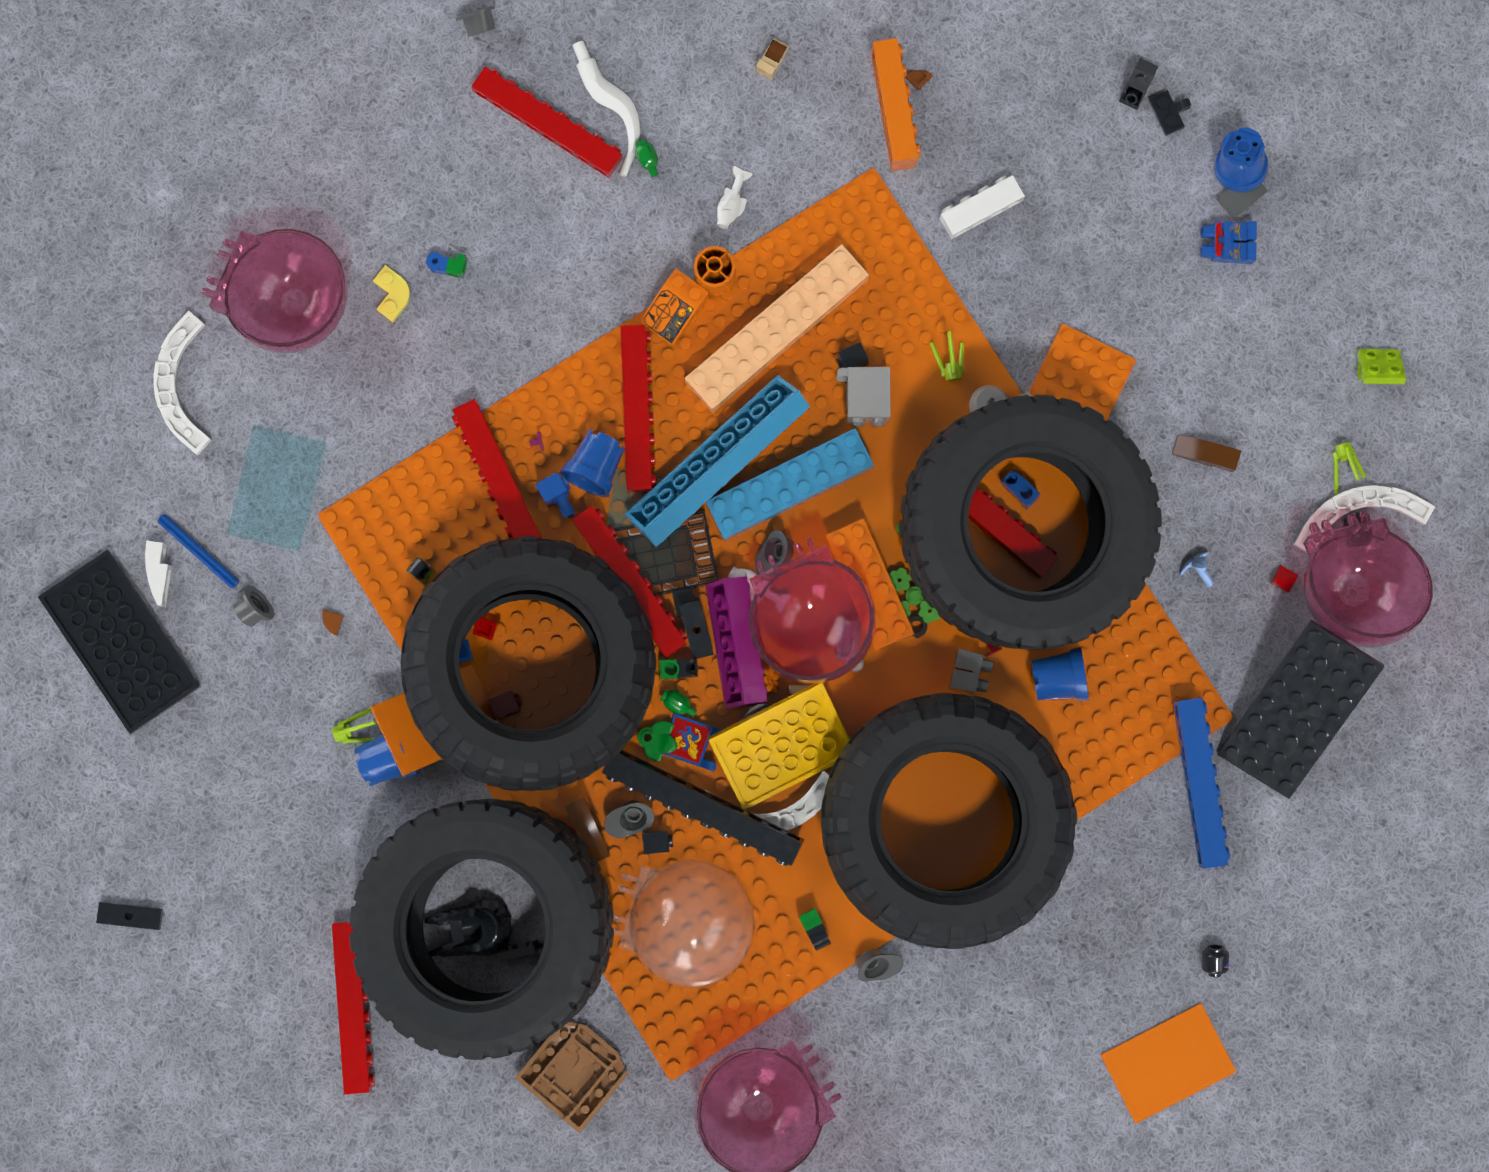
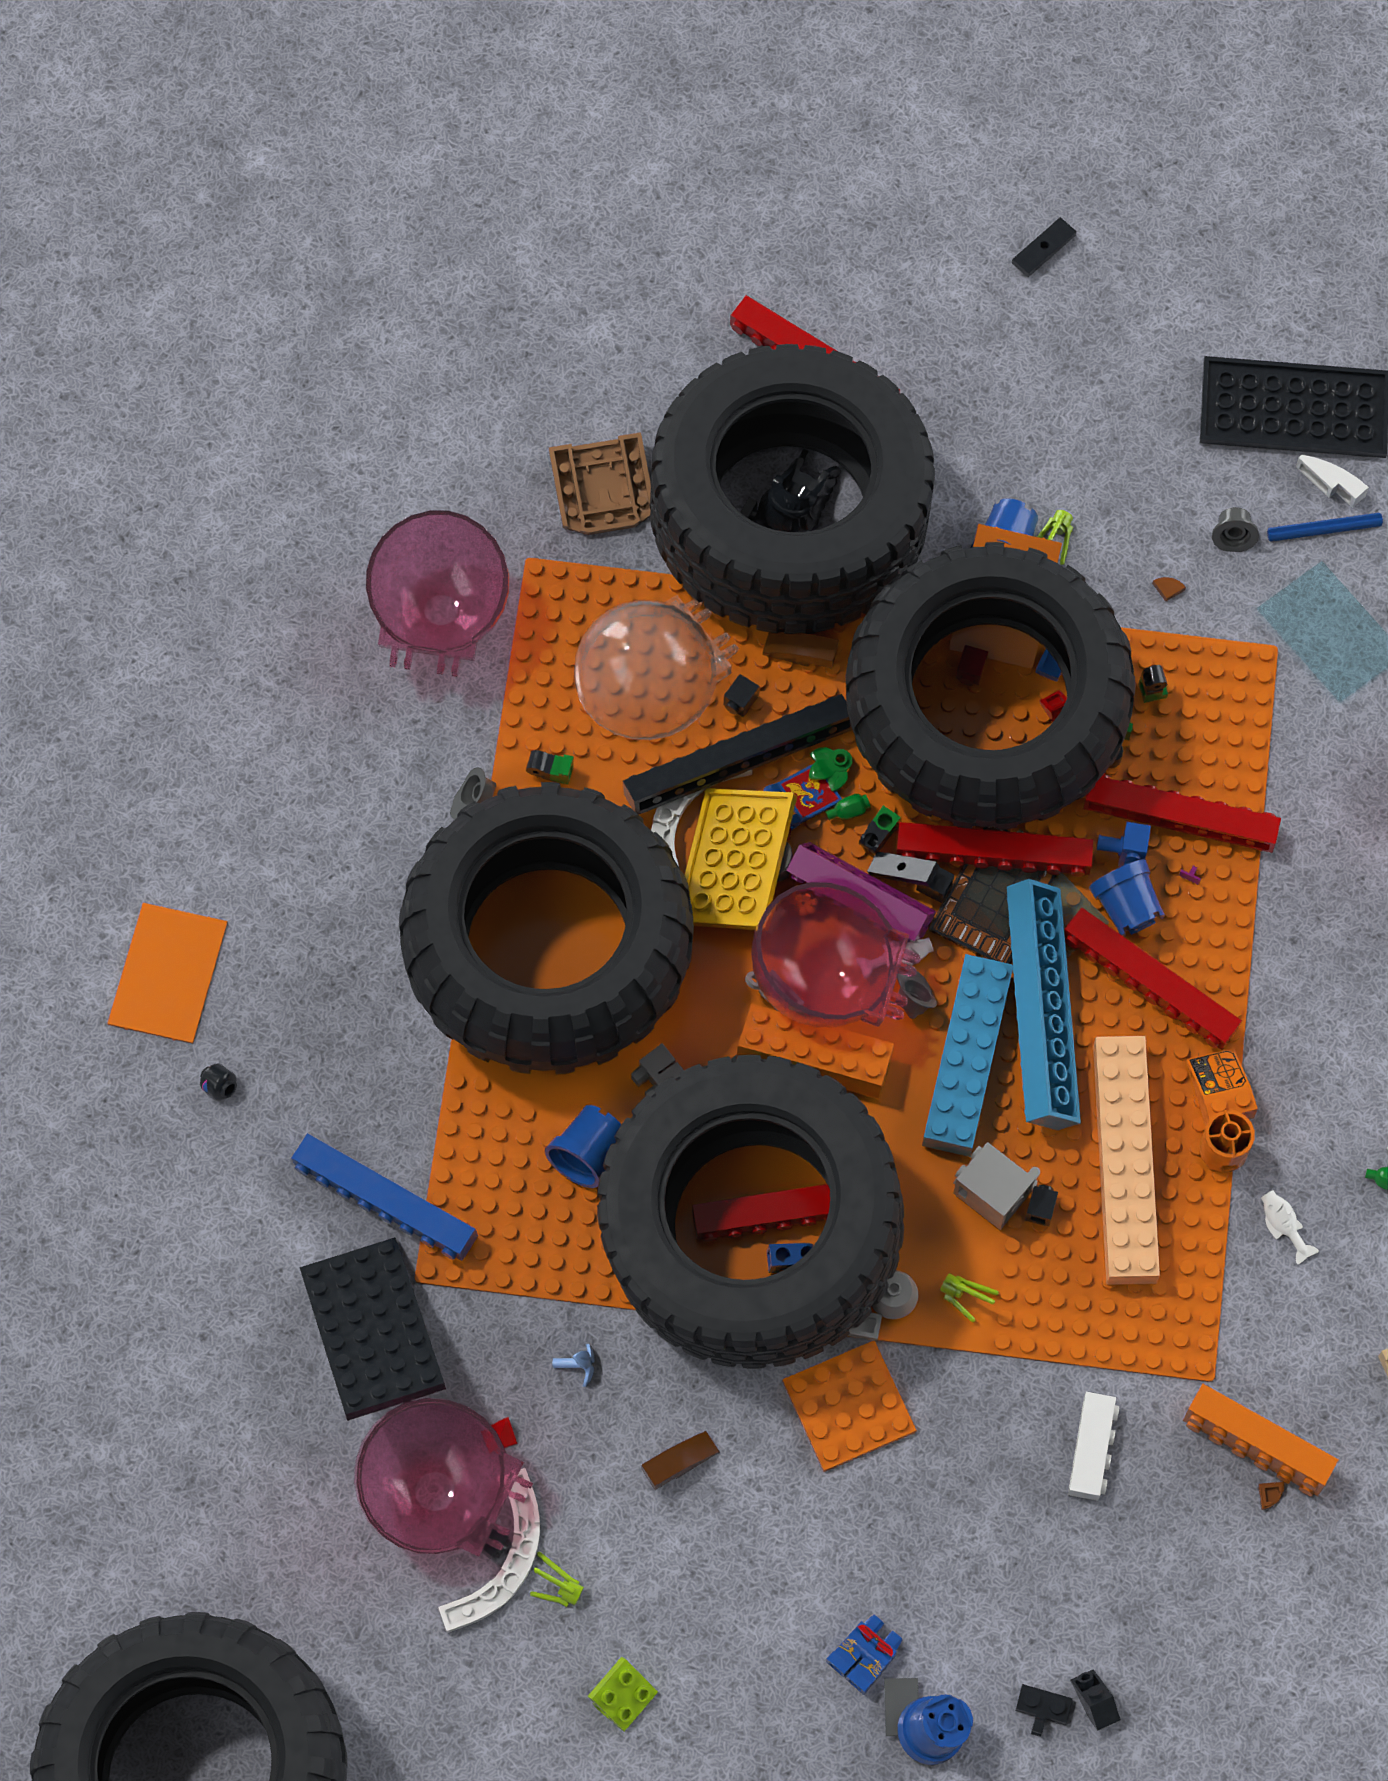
camera: 130 degrees right, 15 degrees down
(629, 819) = (781, 685): dark grey piece -> none

